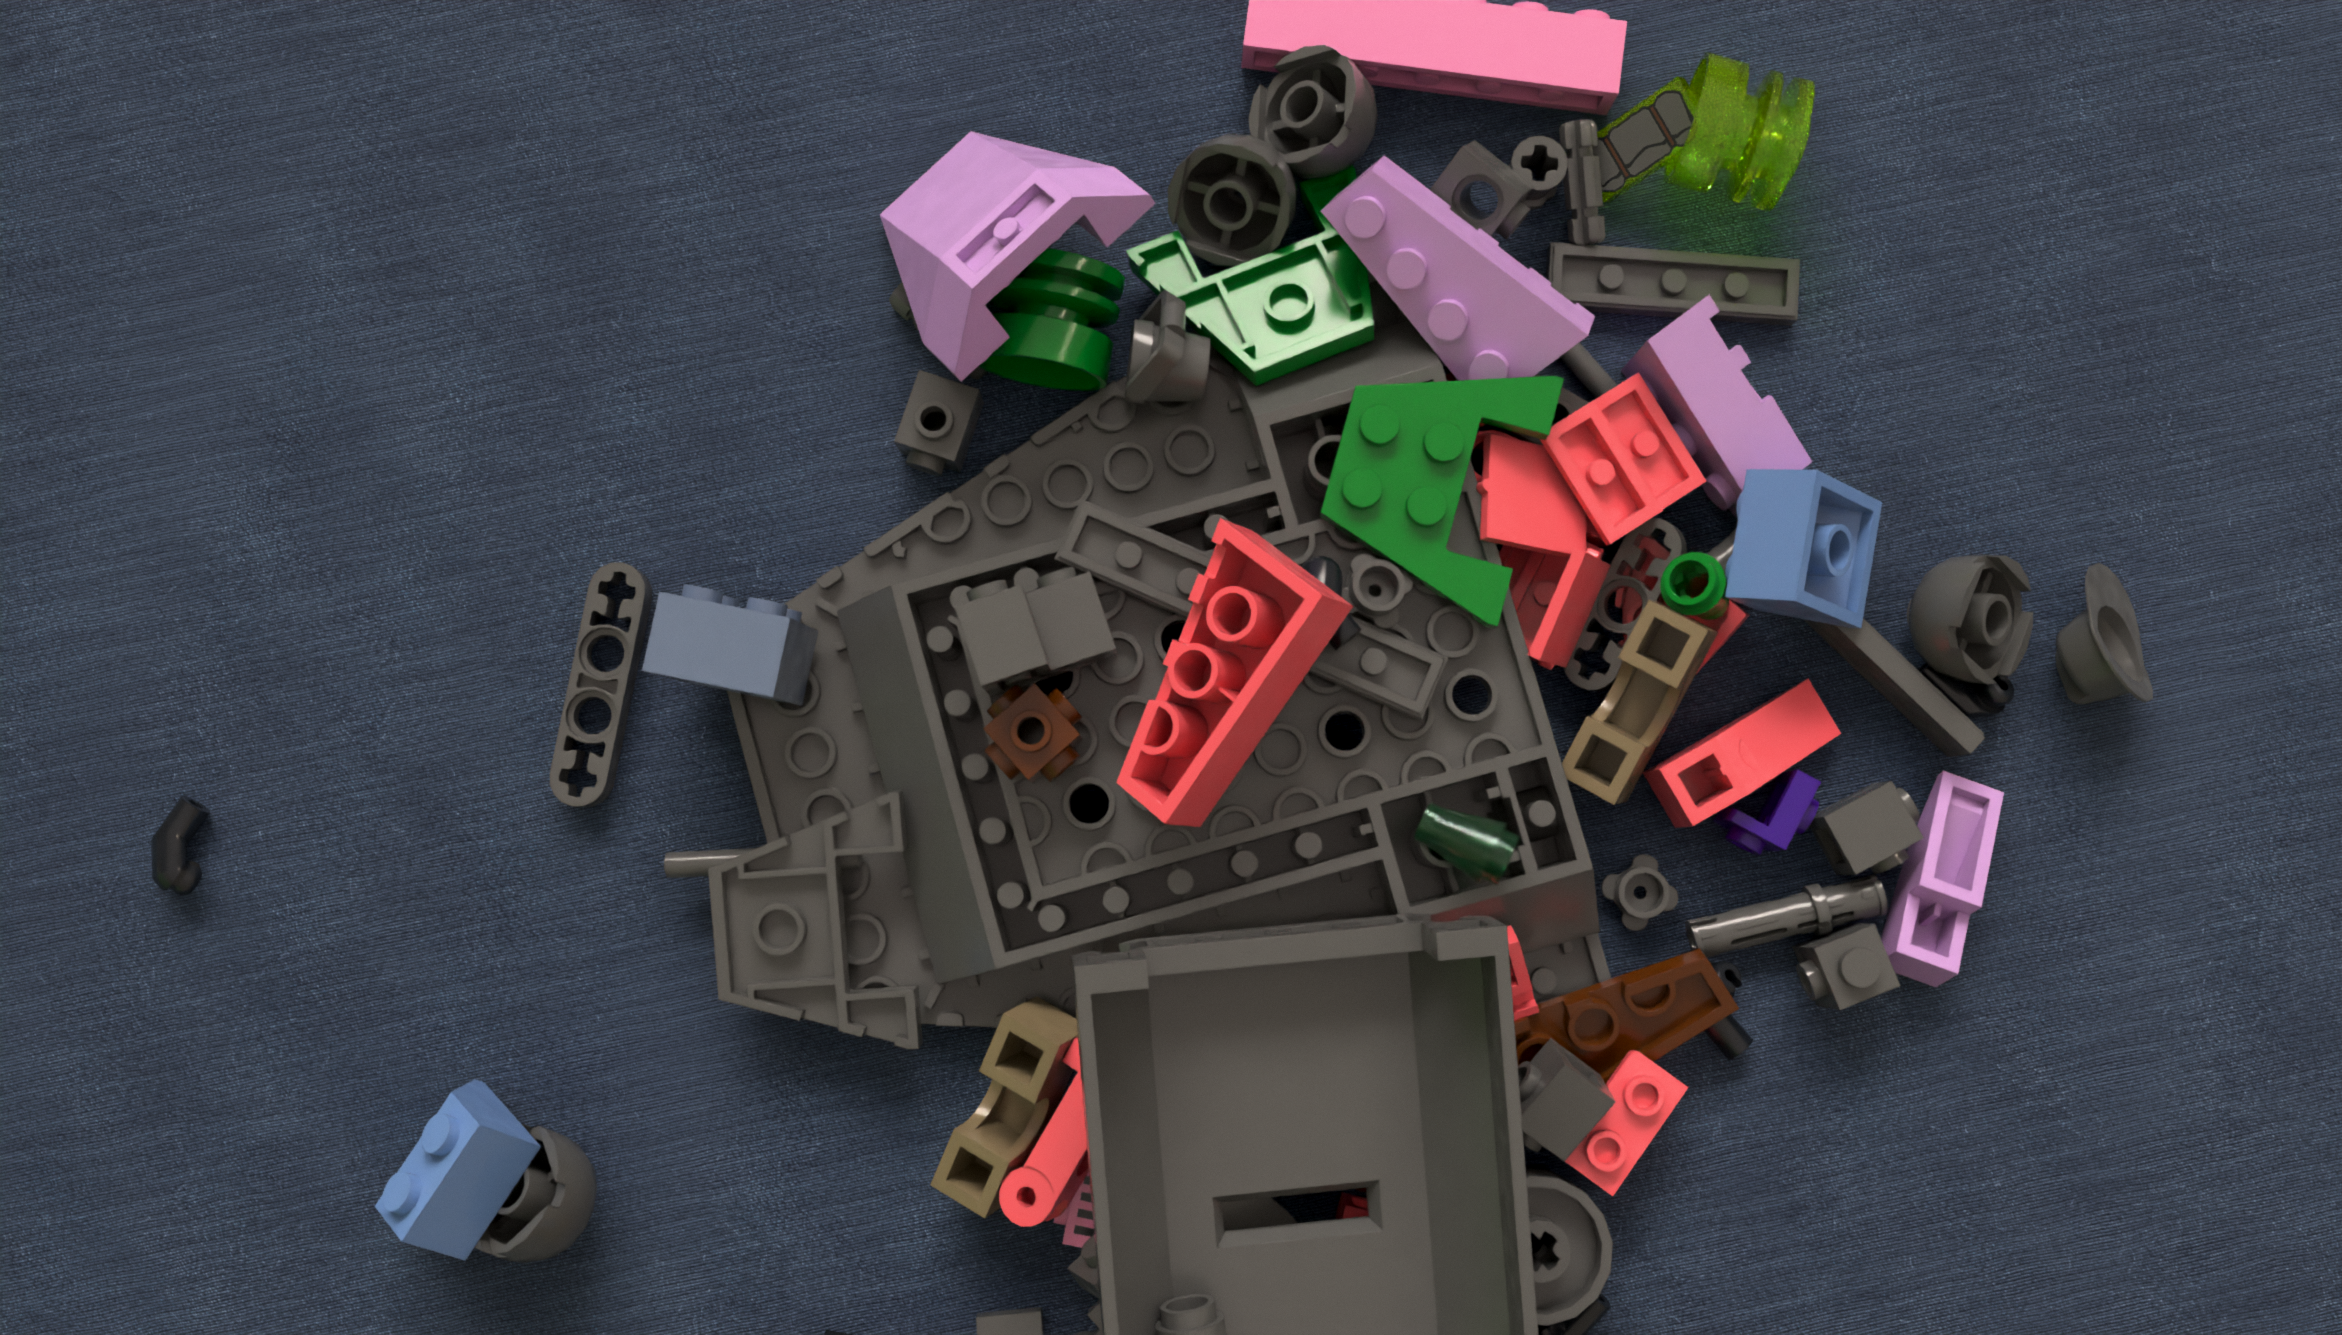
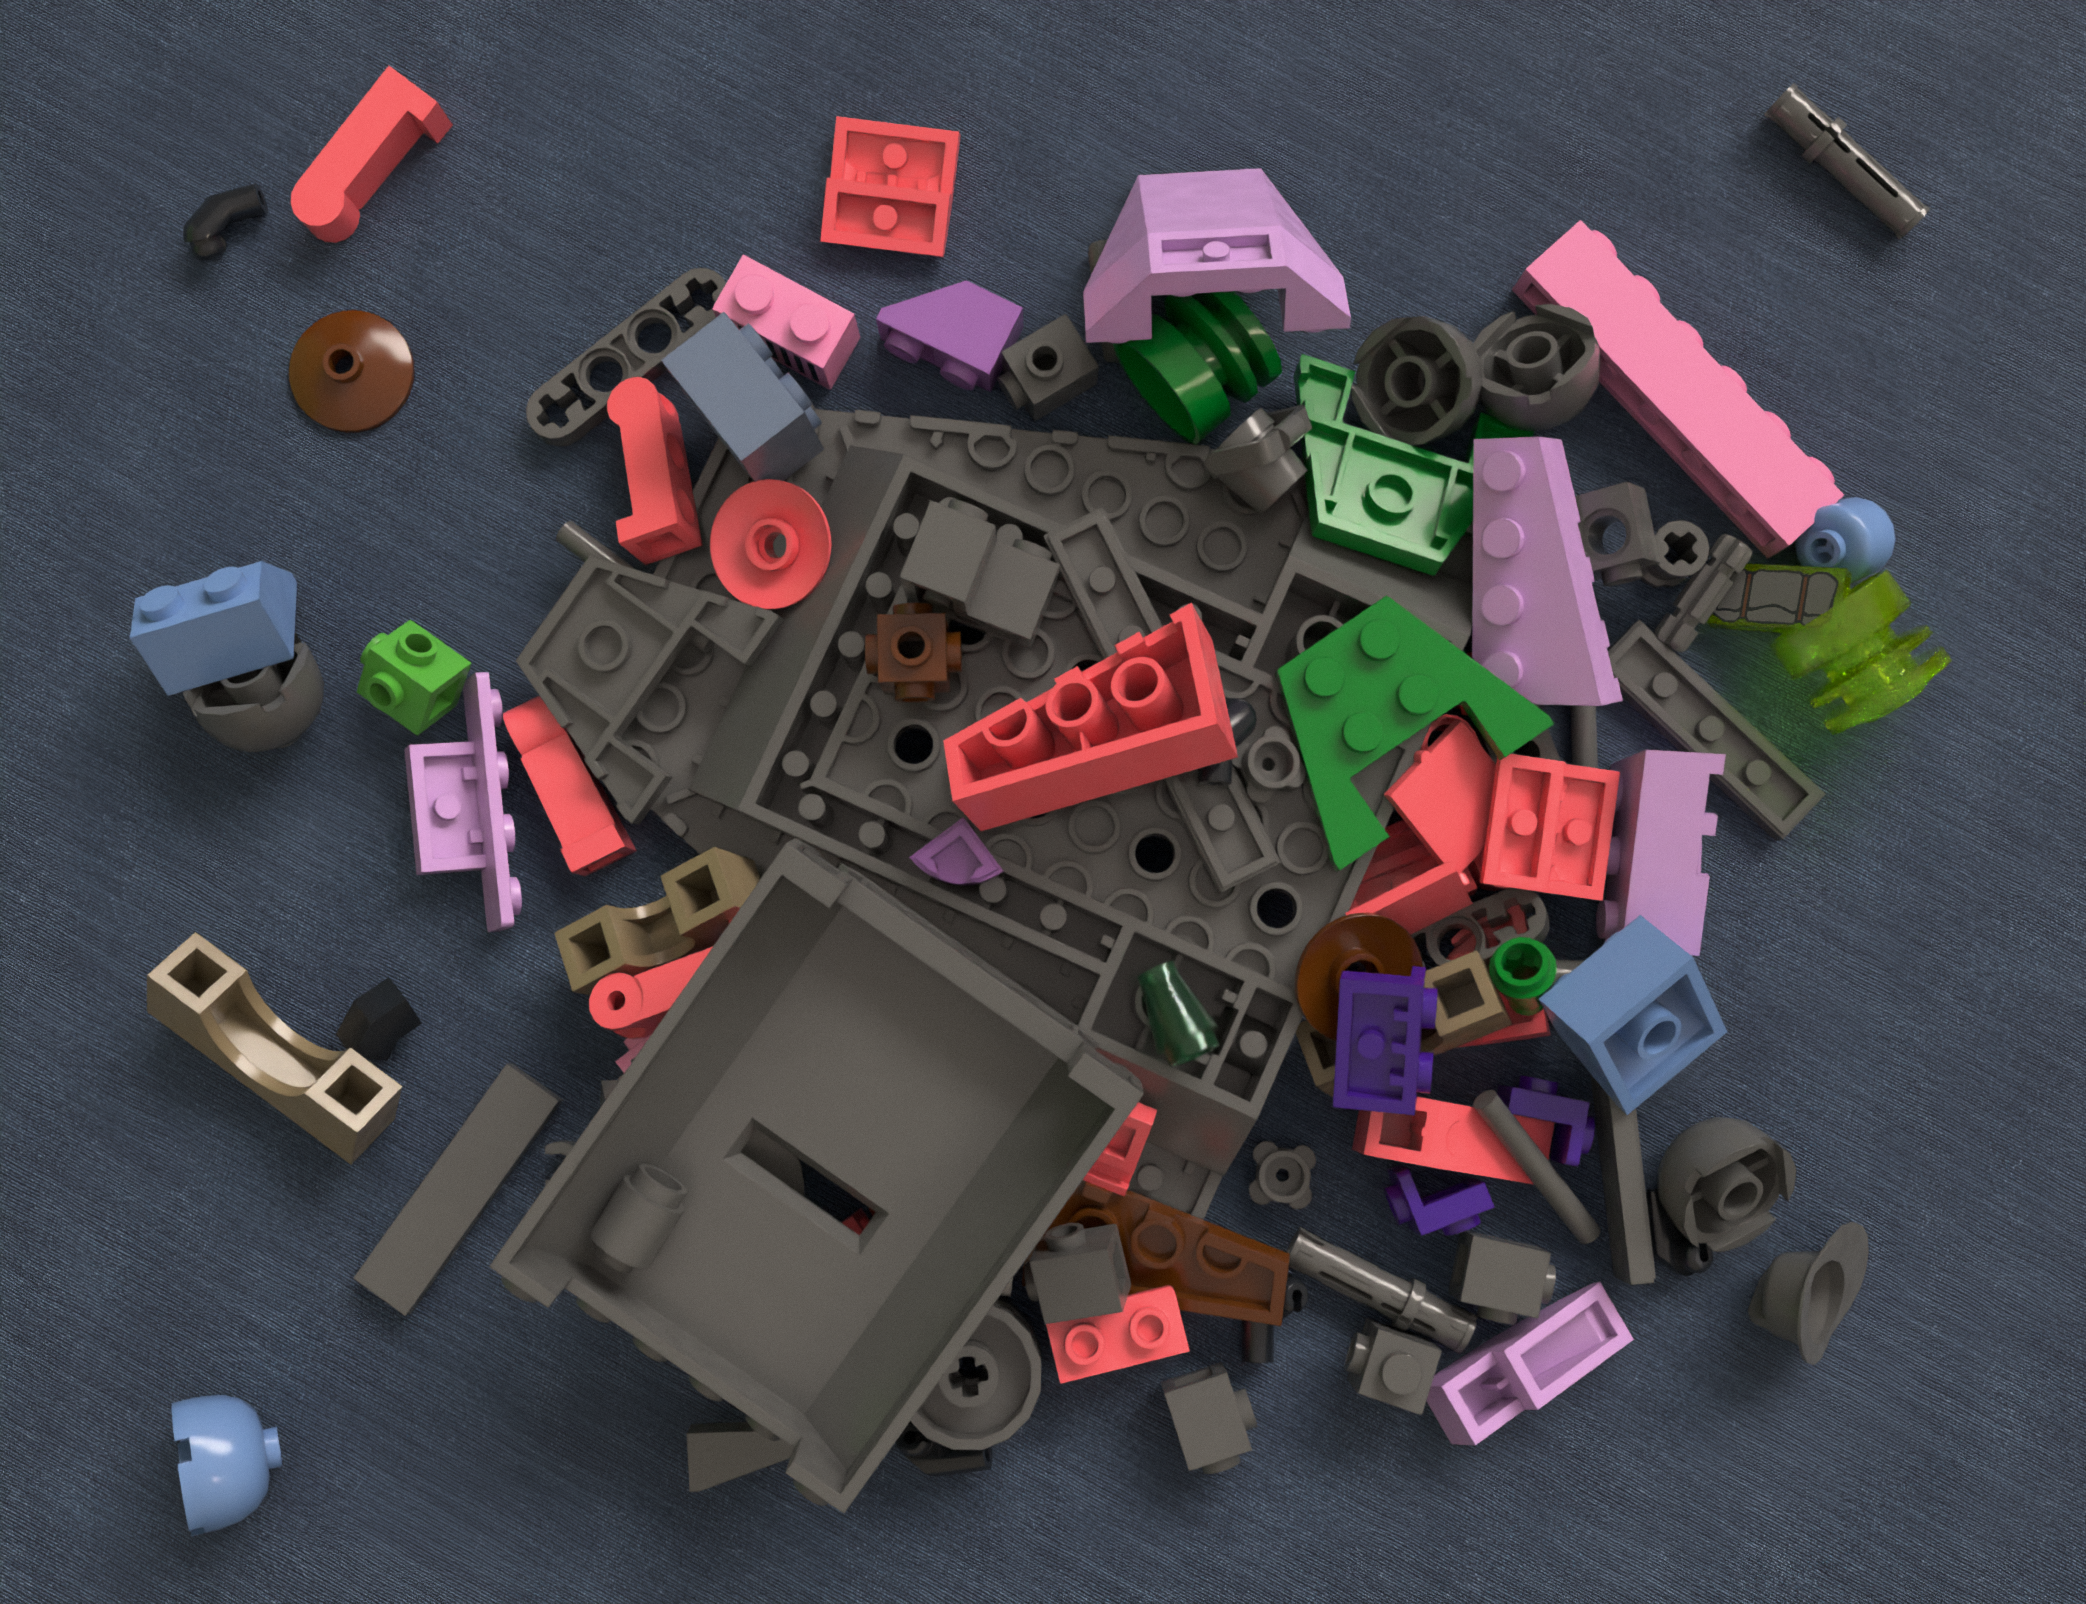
camera: 40 degrees right, 0 degrees up
(252, 701) = (364, 155): none -> coral leg
(415, 884) = (373, 386): none -> reddish brown dish
(644, 1080) = (412, 676): none -> bright green brick
(693, 382) = (890, 186): none -> coral slope
(702, 758) = (657, 474): none -> coral leg
(705, 552) = (792, 321): none -> bright pink brick
(768, 1148) = (460, 806): none -> lavender bracket
(822, 760) = (745, 537): none -> coral dish
(840, 1063) = (567, 789): none -> coral leg
(841, 452) = (955, 330): none -> medium lavender slope
(1198, 862) = (957, 857): none -> medium lavender tile
(1600, 699) = (1369, 939): none -> reddish brown dish
(1637, 730) = (1380, 1041): none -> dark purple bracket
(1656, 51) = (1848, 536): none -> medium blue head
(1742, 1124) = (1210, 1418): none -> dark grey brick
(1784, 672) = (1539, 1100): none -> dark purple bracket
(1825, 724) = (1536, 1166): none -> dark grey bar

